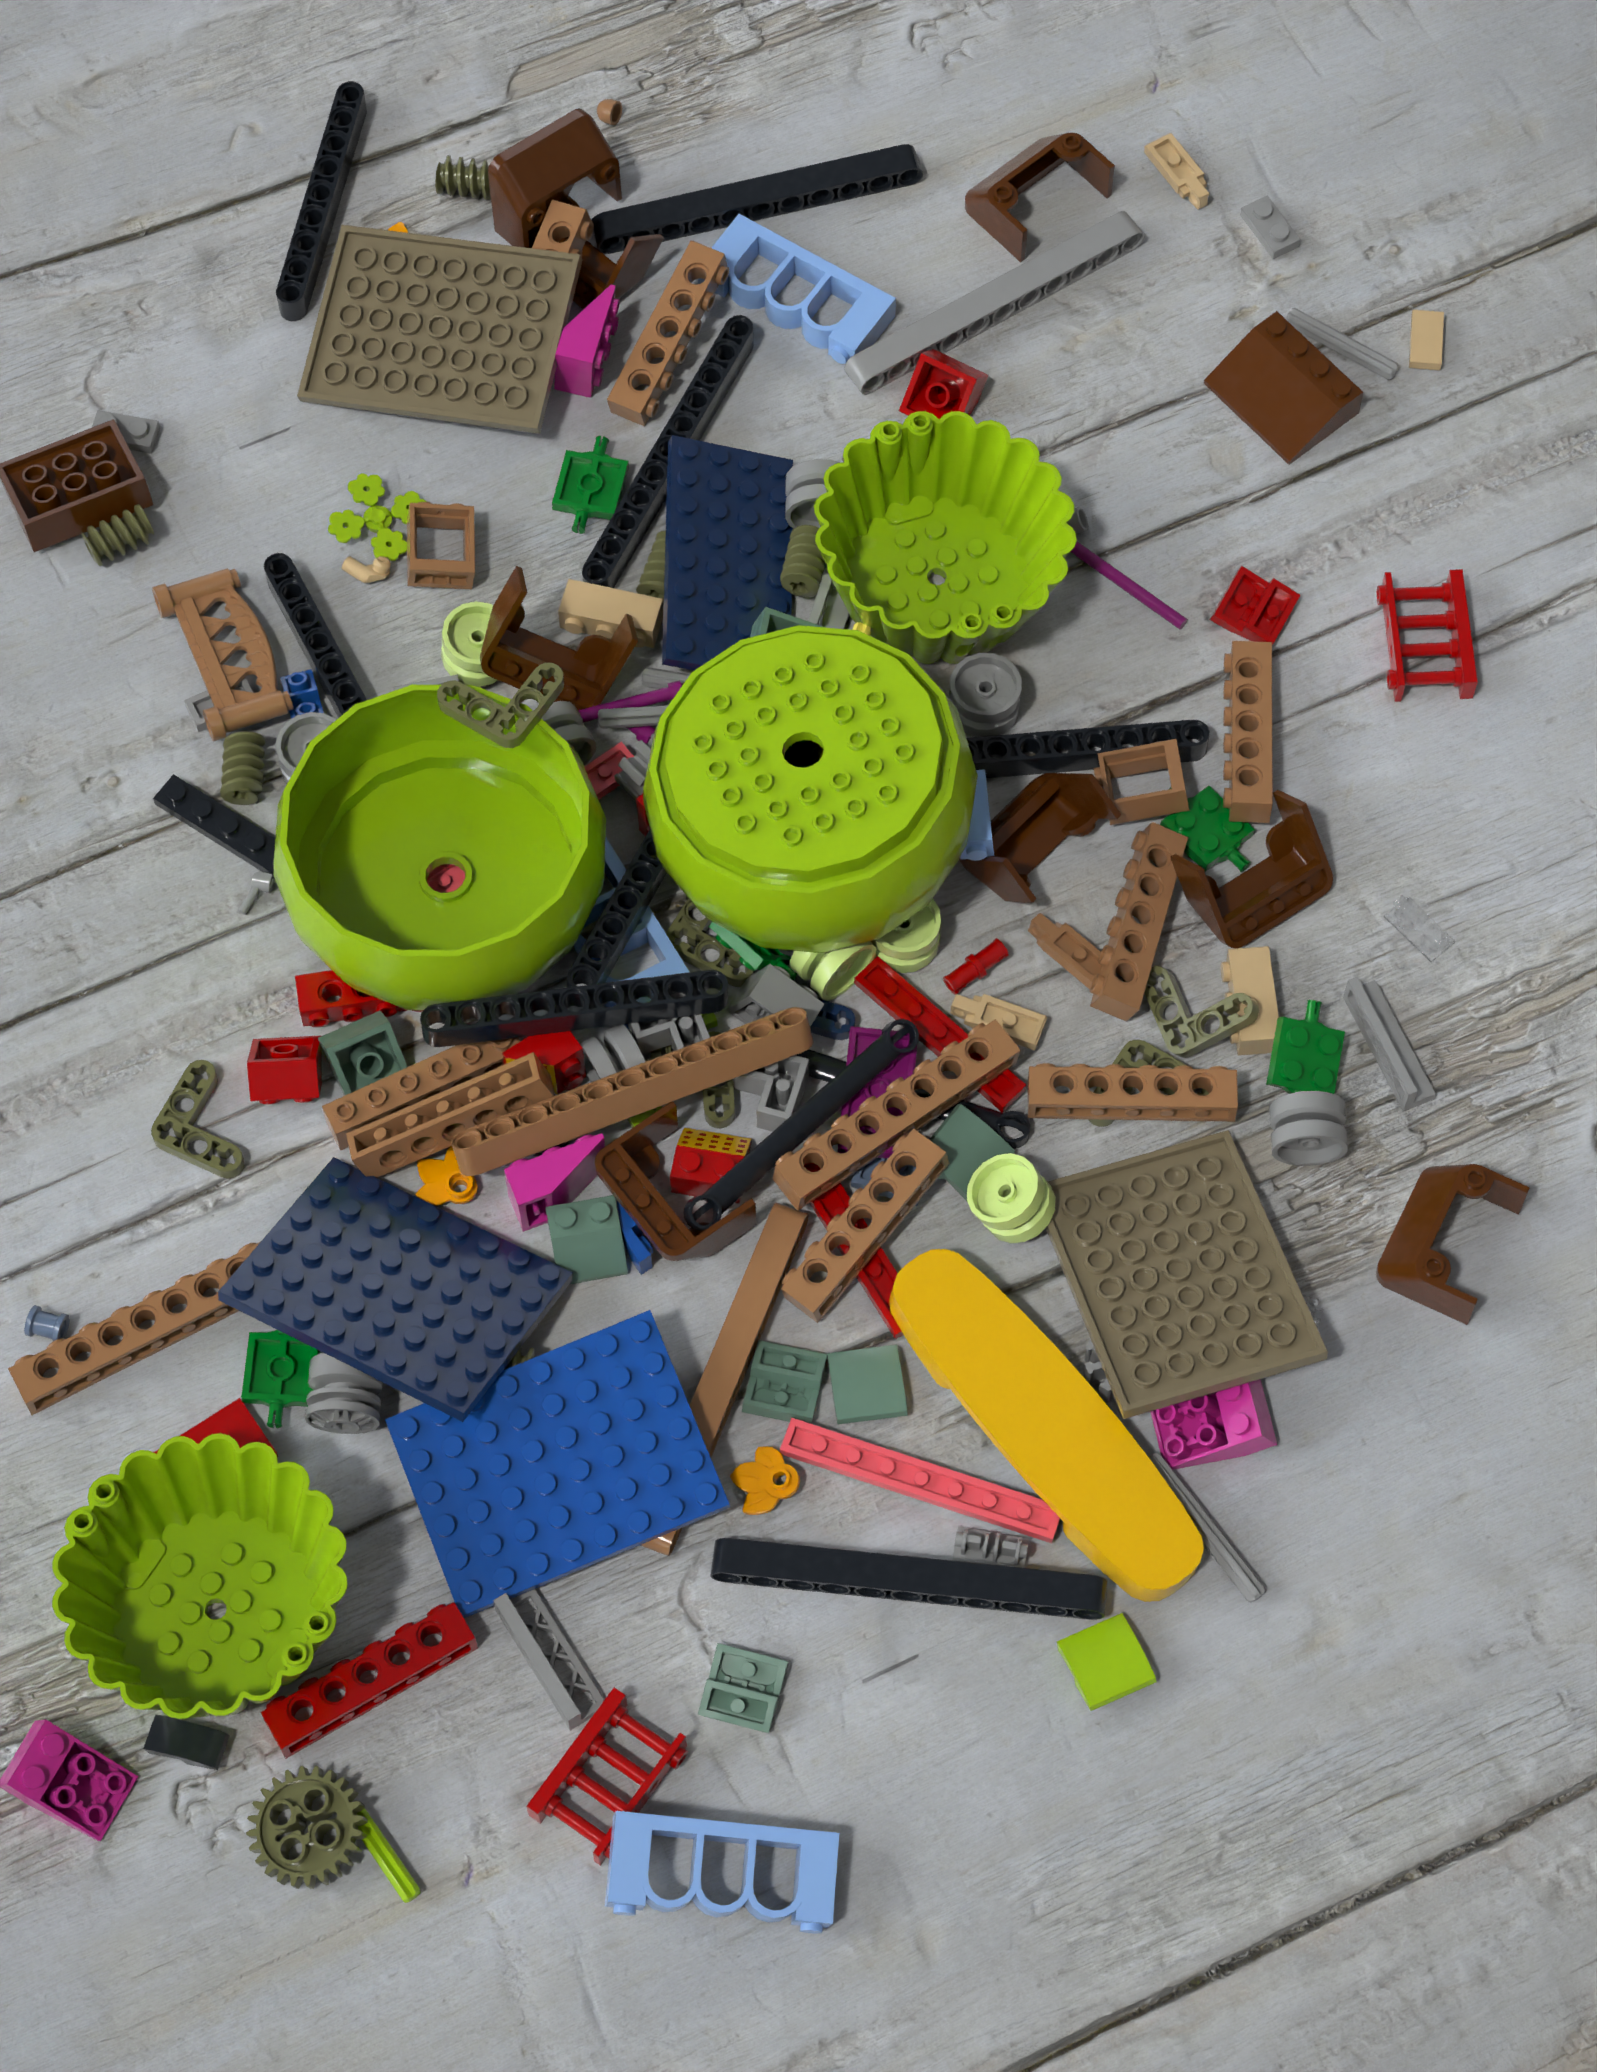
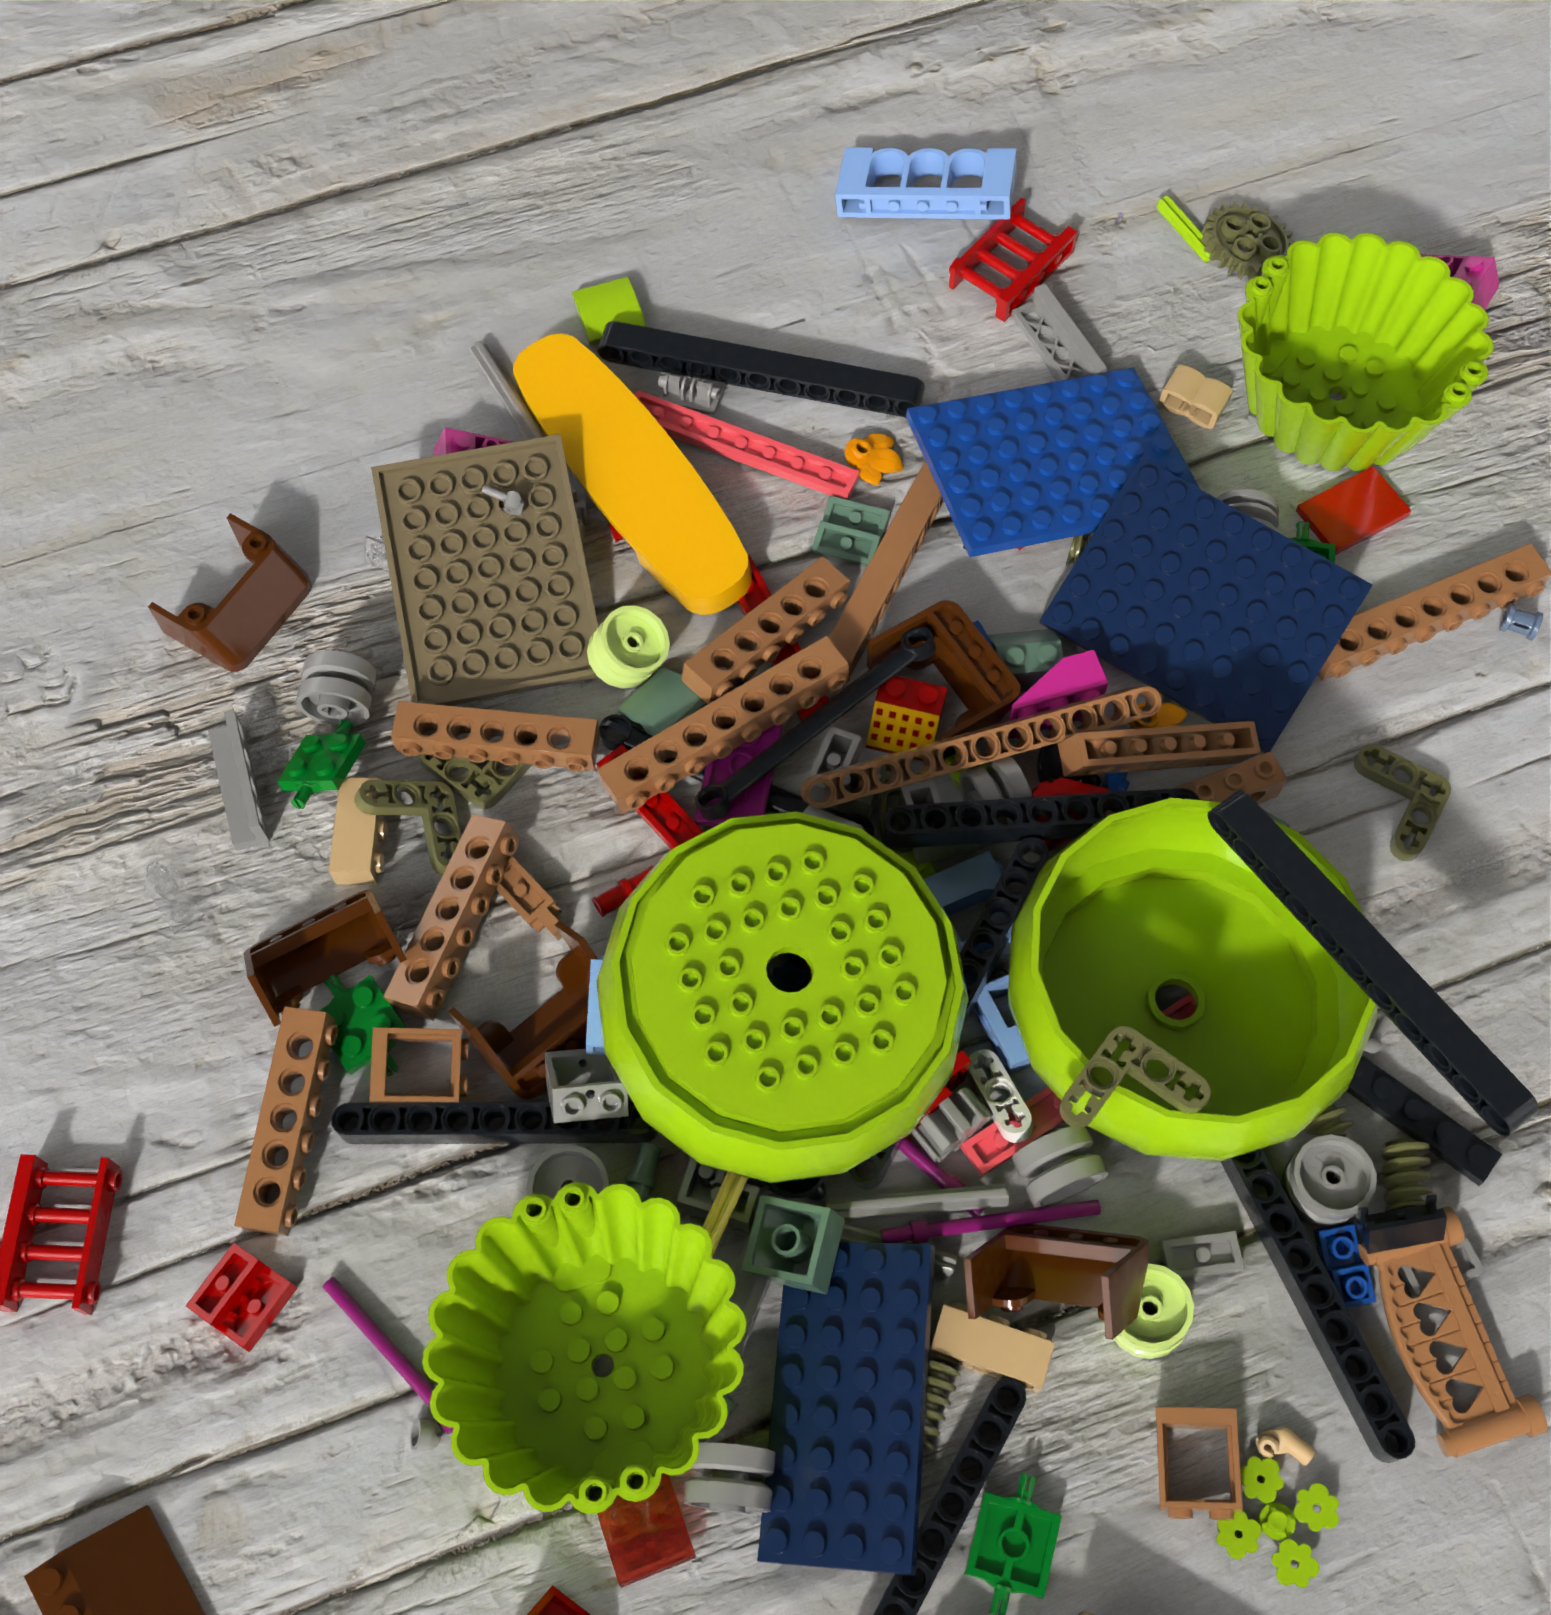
camera: 175 degrees left, 0 degrees up
(259, 708) = (1402, 1226): none -> black hinge
(285, 1069) = (1334, 831): red slope -> none
(293, 816) = (1374, 964): none -> black beam
(359, 1697) = (1183, 341): red brick -> none
(386, 1587) = (1195, 396): none -> tan brick
(624, 823) = (999, 1110): none -> white beam
(743, 1688) = (901, 315): sand green slope -> none
(802, 563) = (758, 1385): olive piece -> none
(867, 1384) = (778, 523): sand green slope -> none
(1009, 792) = (569, 1082): none -> light grey window
(1020, 1023) = (611, 834): tan hinge -> none
(1161, 1328) = (513, 501): none -> light grey hand

